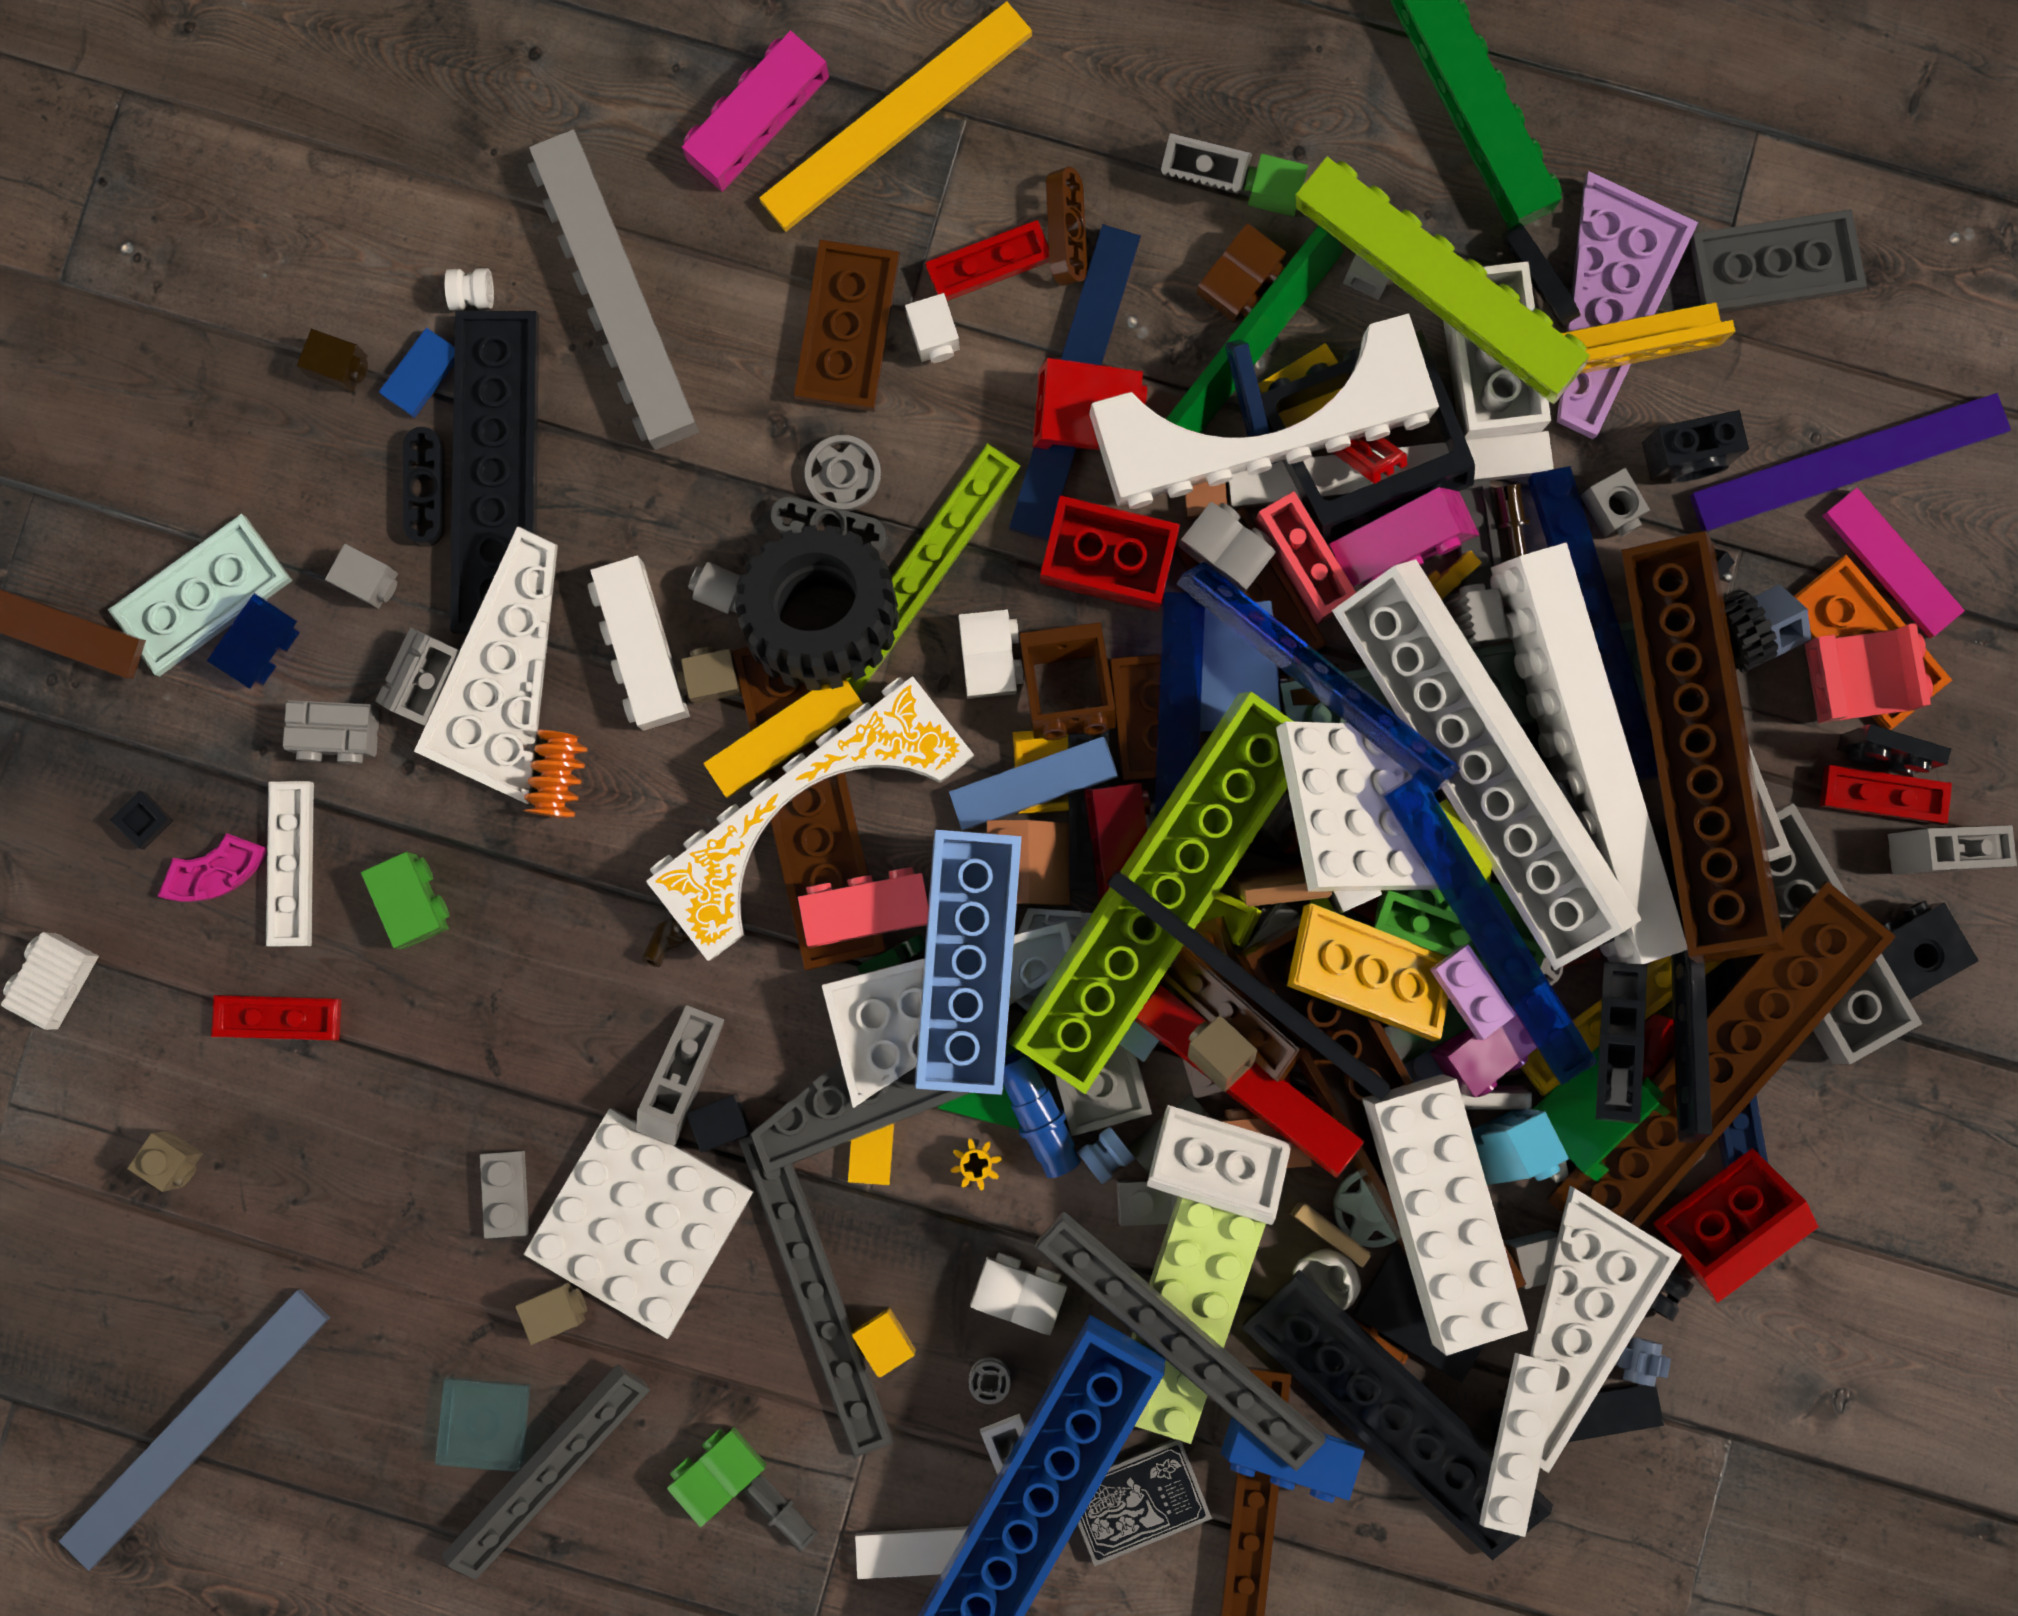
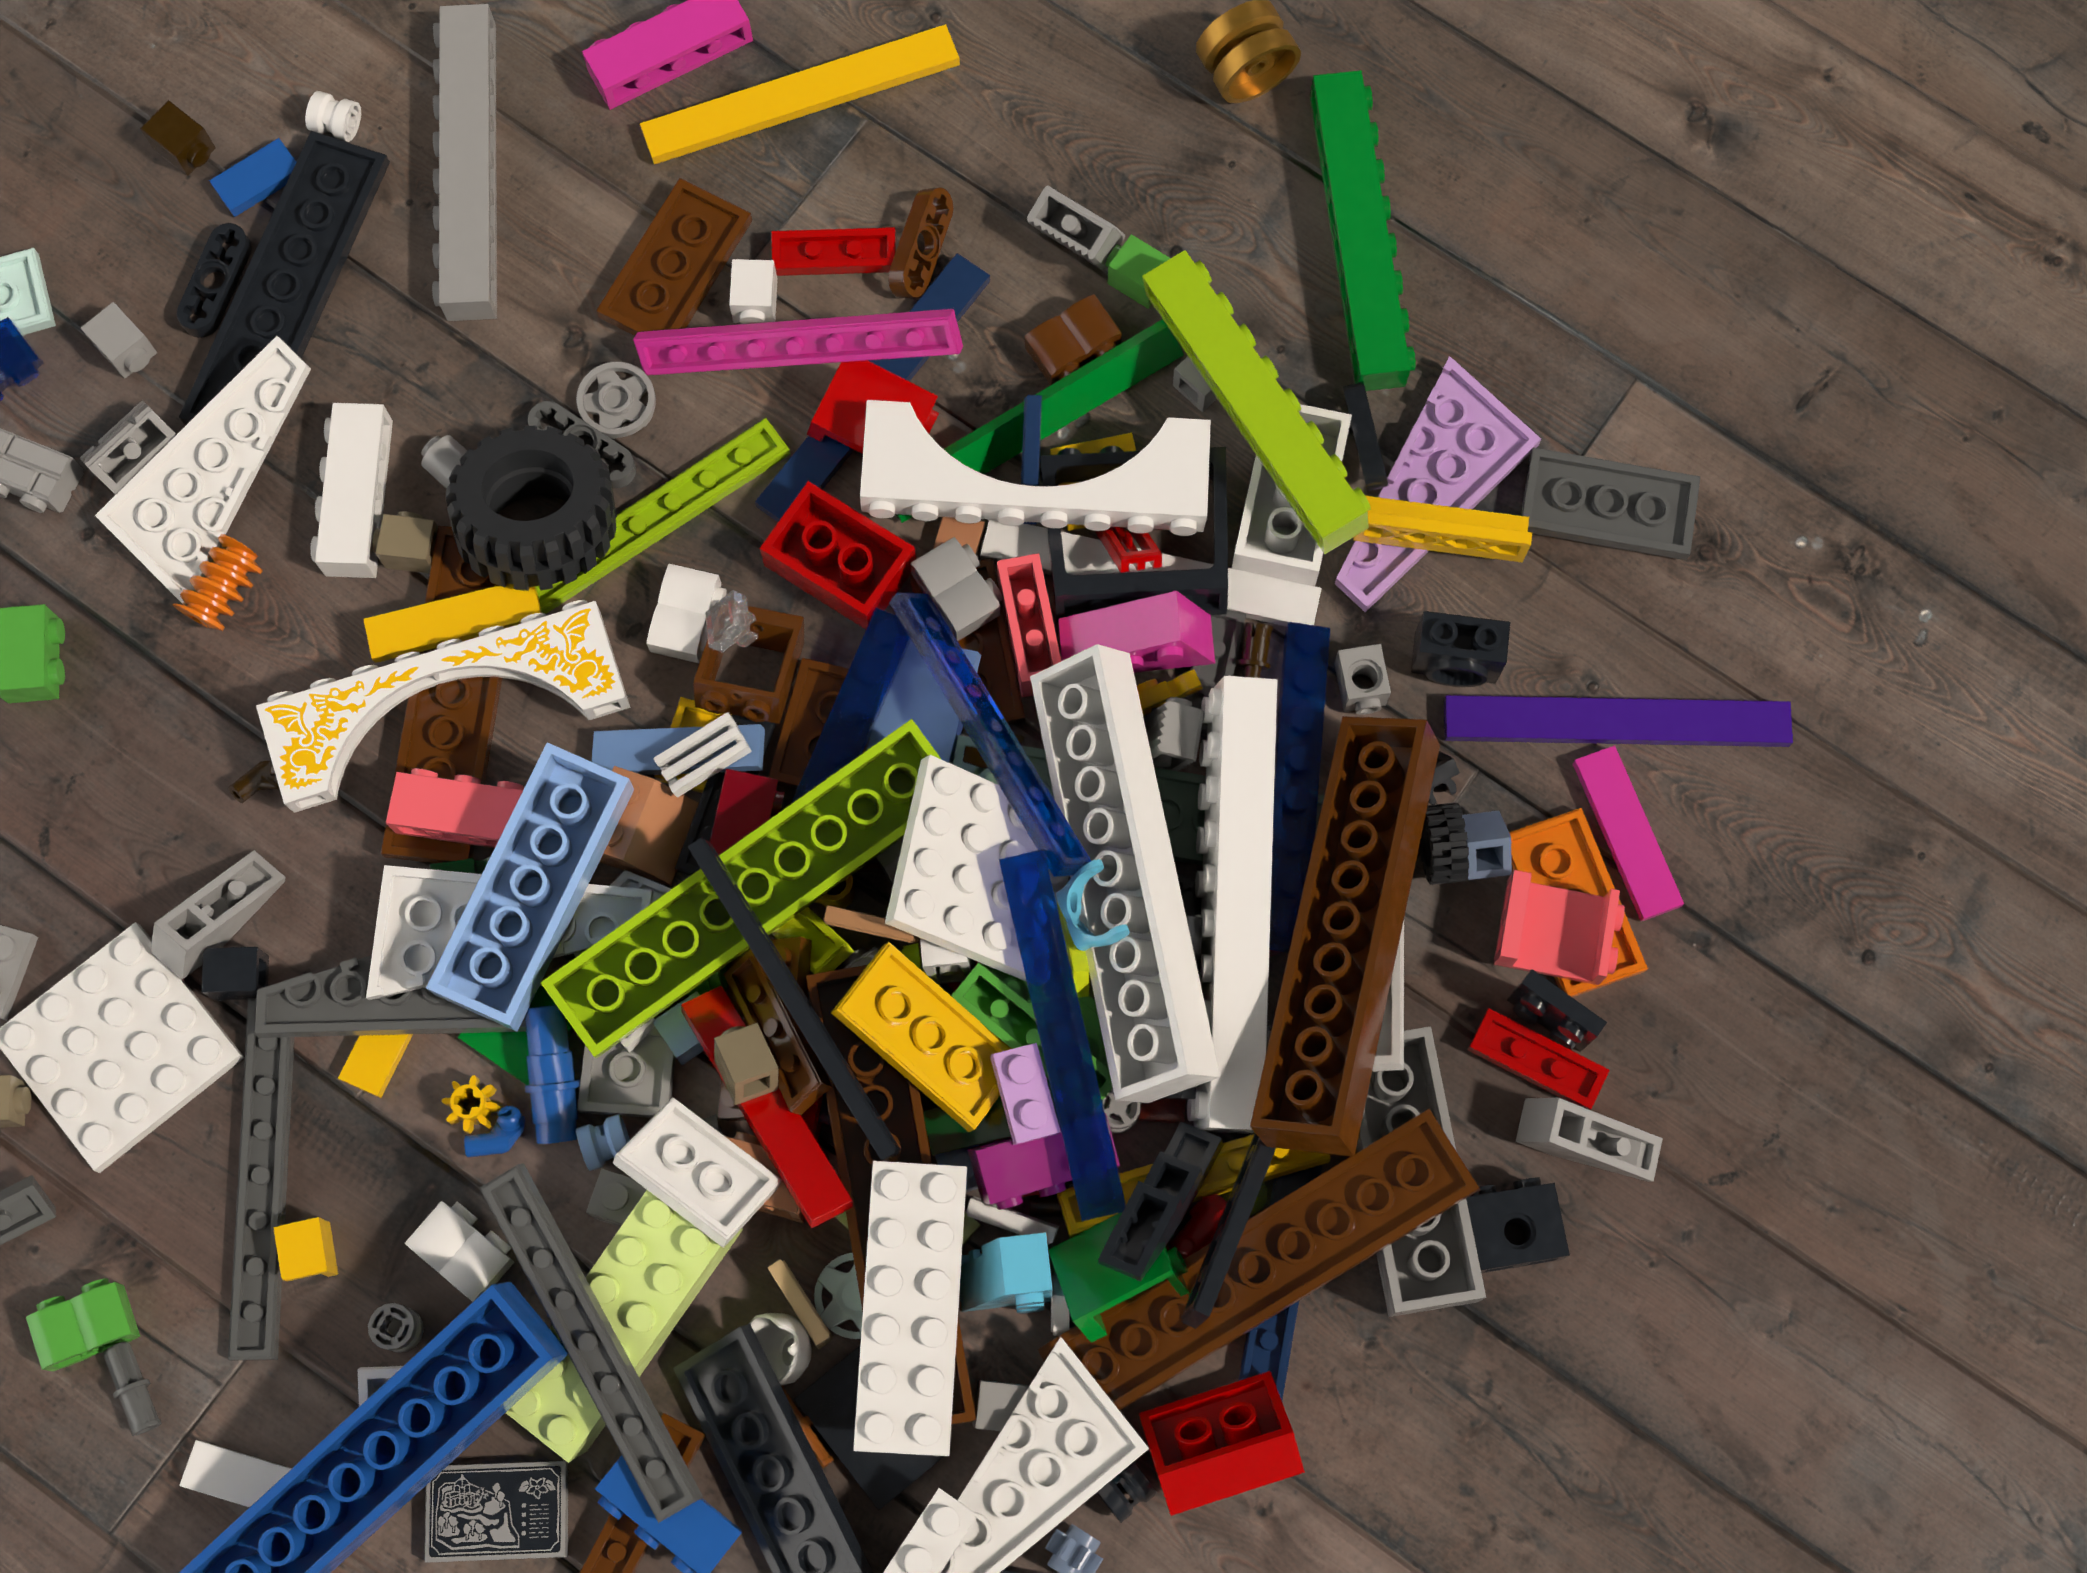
camera: 20 degrees right, 10 degrees down
(1003, 366) = (799, 342): none -> dark pink tile
(1011, 1181) = (500, 1138): none -> blue arm
(1039, 809) = (695, 741): none -> white tile
(1042, 654) = (730, 622): none -> clear tile
(1473, 835) = (1070, 900): none -> medium azure cap

